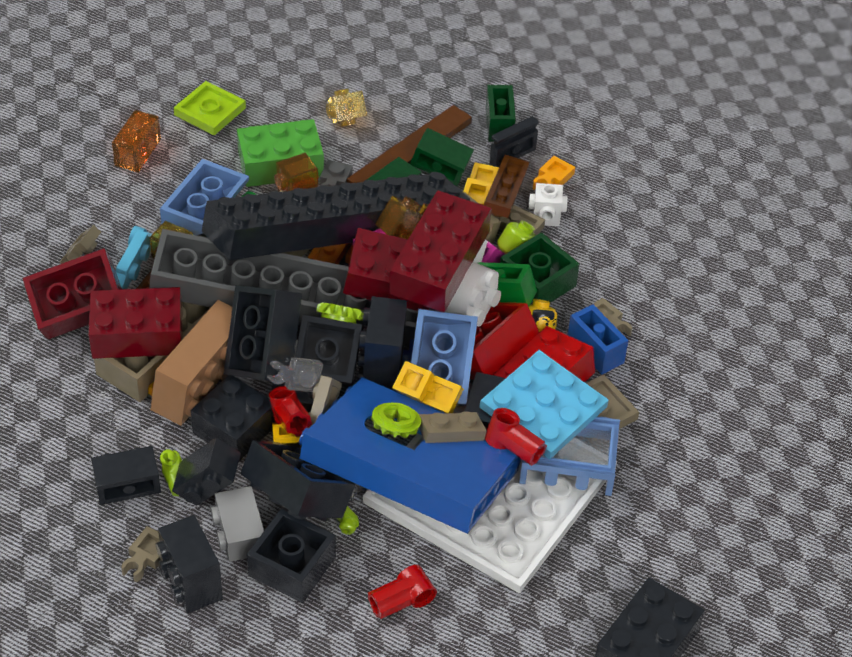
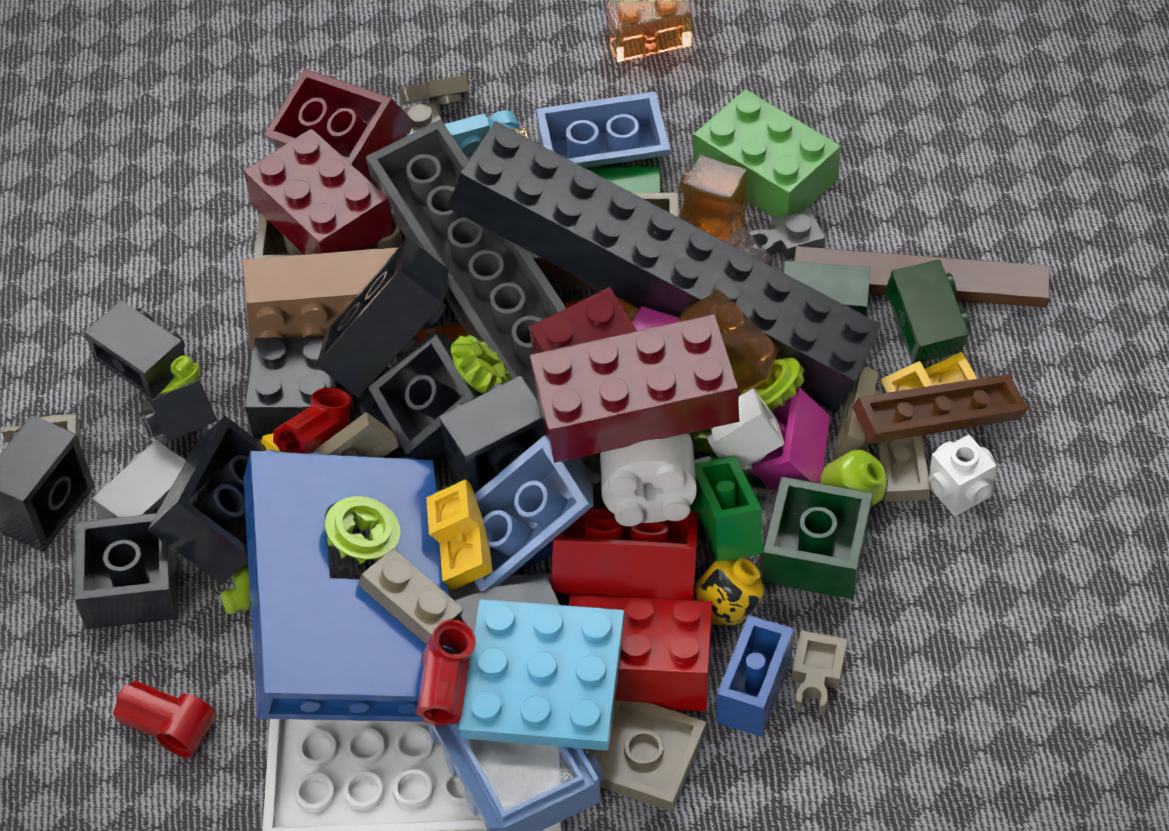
camera: 60 degrees right, 5 degrees up
(209, 108) = (779, 49): lime plate -> none
(299, 375) = (356, 389): clear plate -> none
(354, 106) = (912, 165): clear yellow brick -> none
(499, 109) = (1075, 320): dark green brick -> none
(514, 141) = (1040, 367): black plate -> none
(554, 172) = (1036, 448): light orange plate -> none

